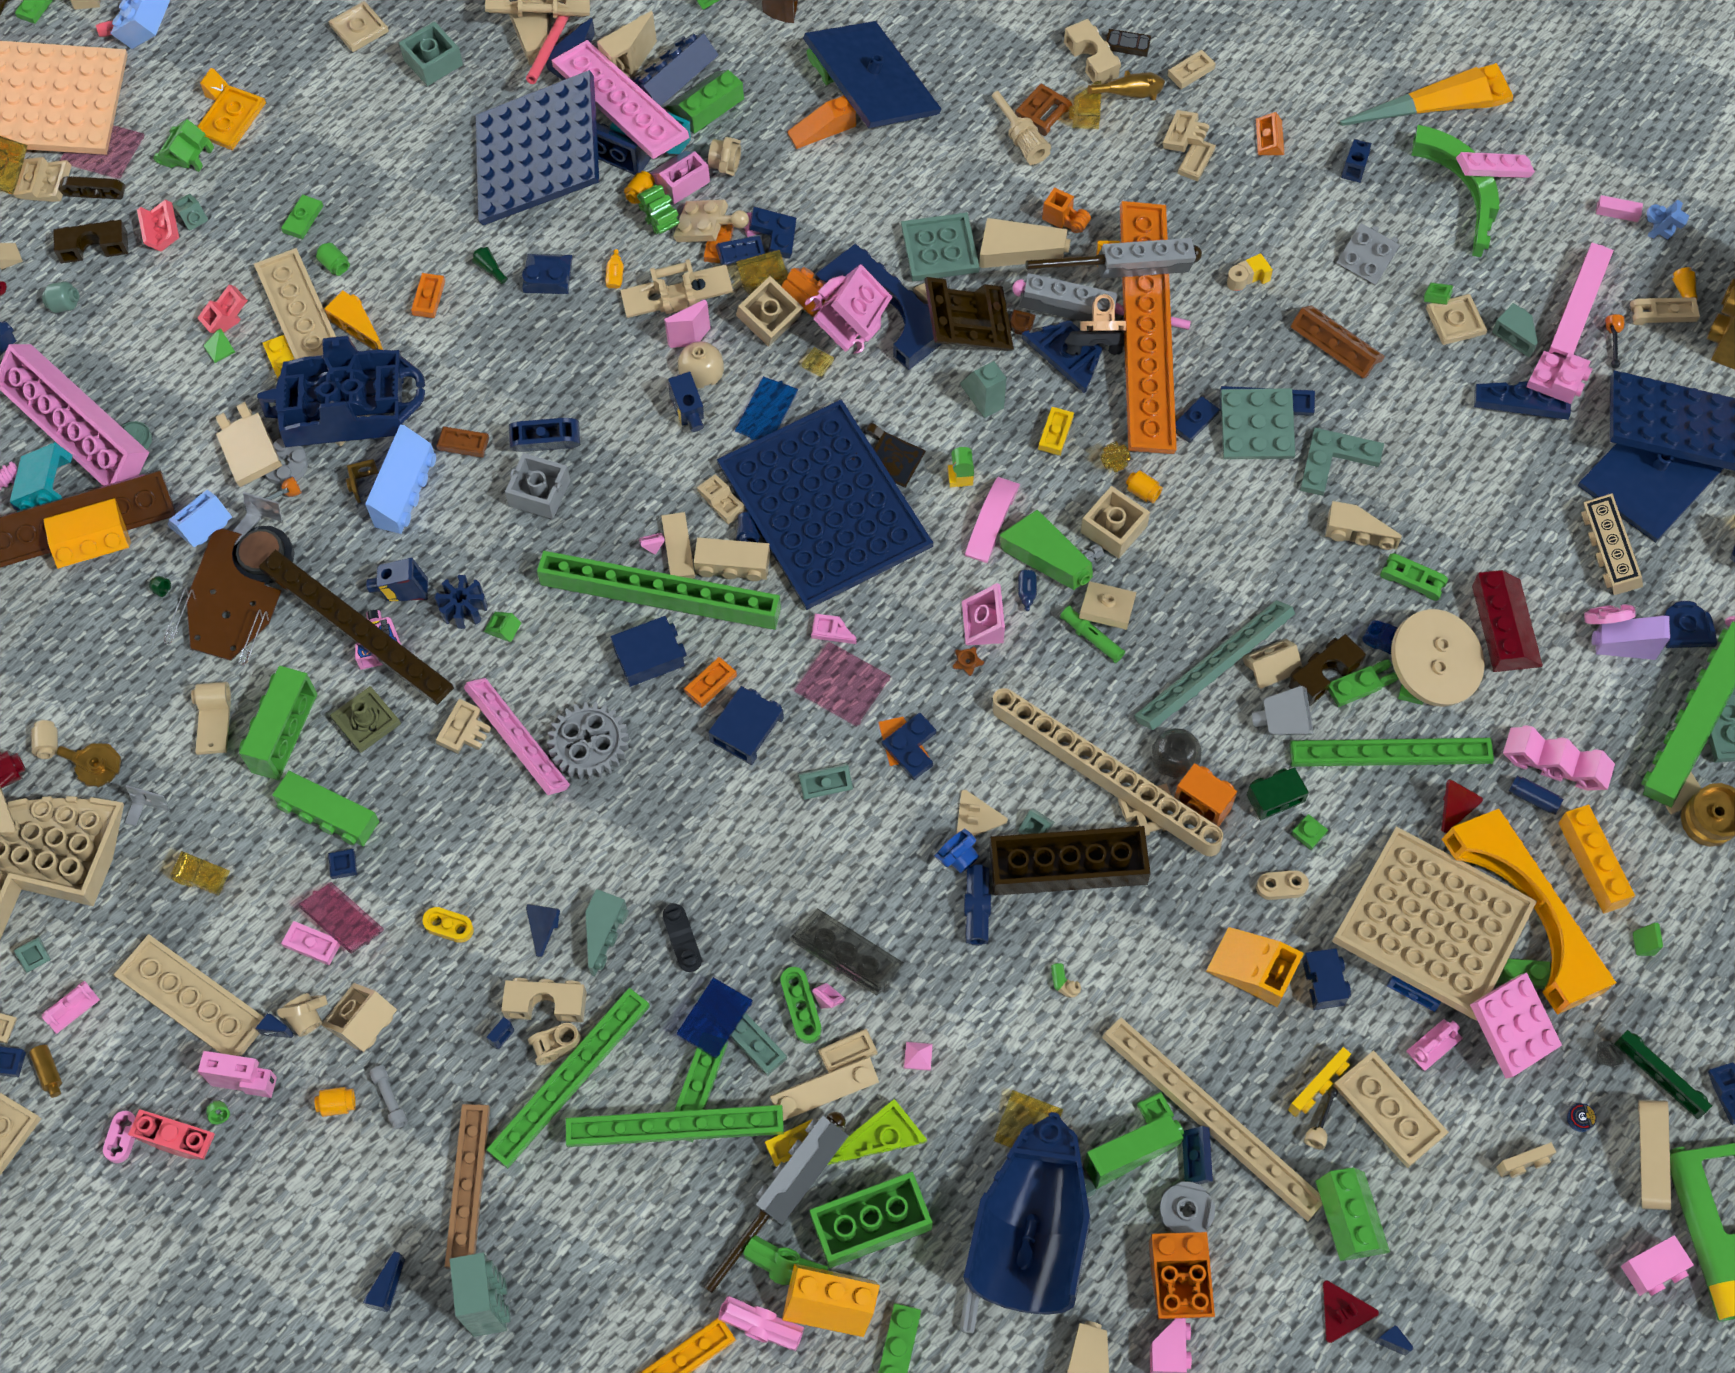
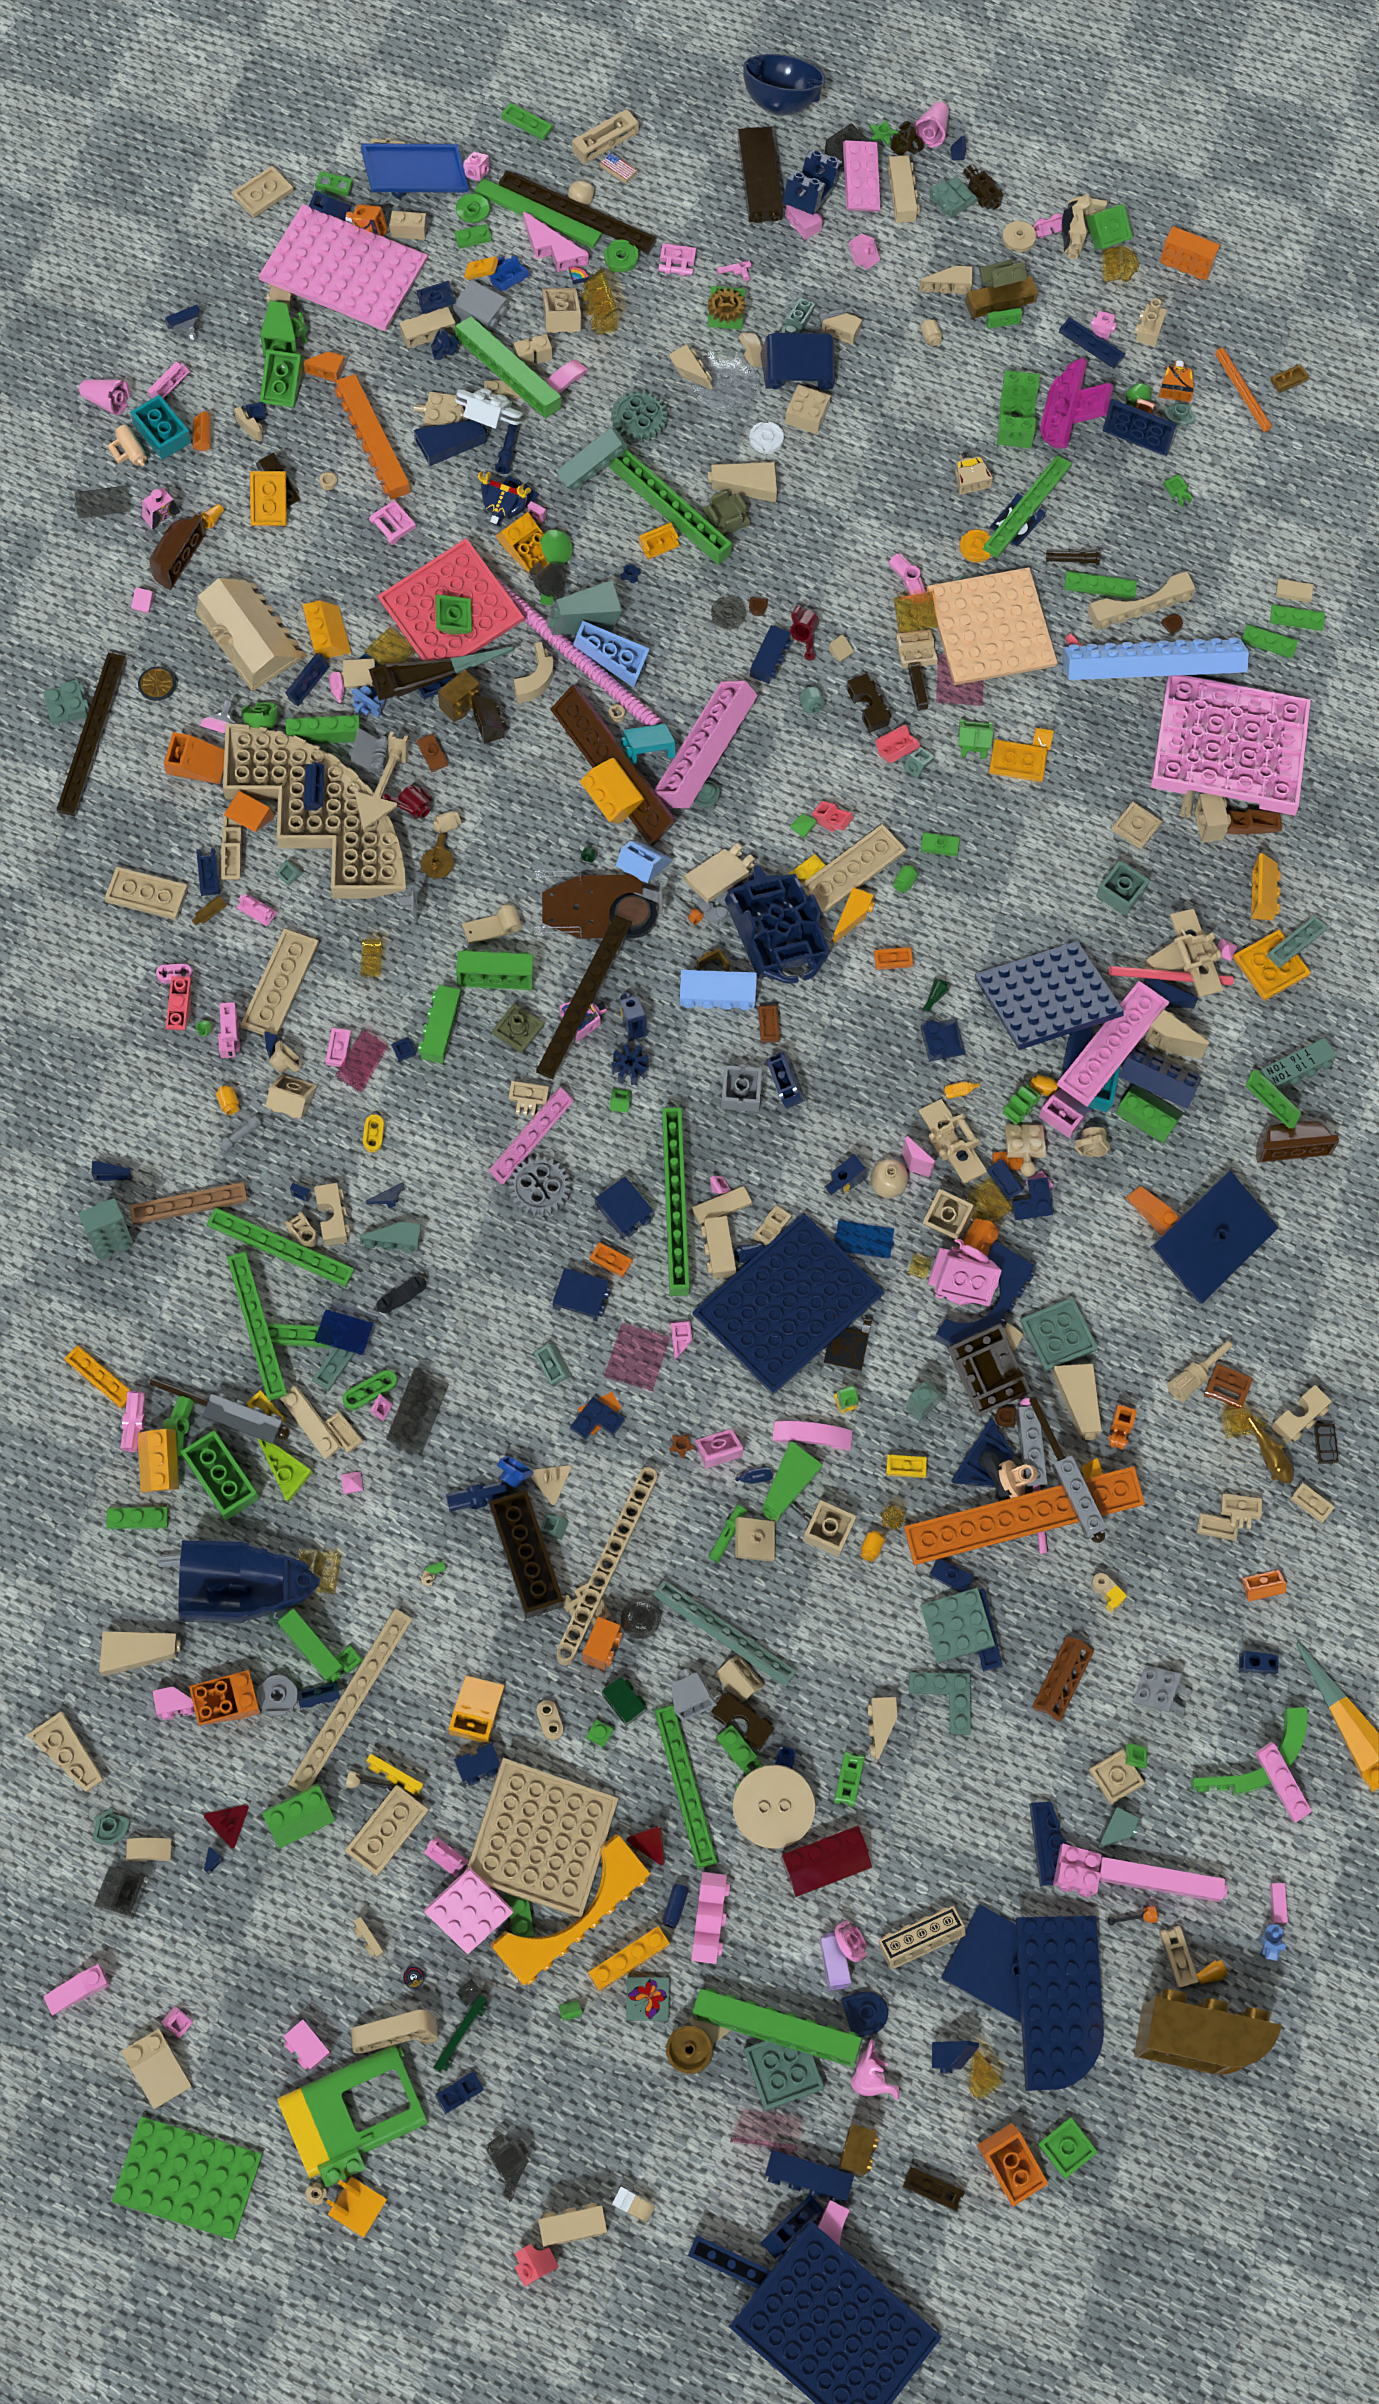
camera: 70 degrees right, 5 degrees up
(1643, 851) = (647, 1999): none -> tile

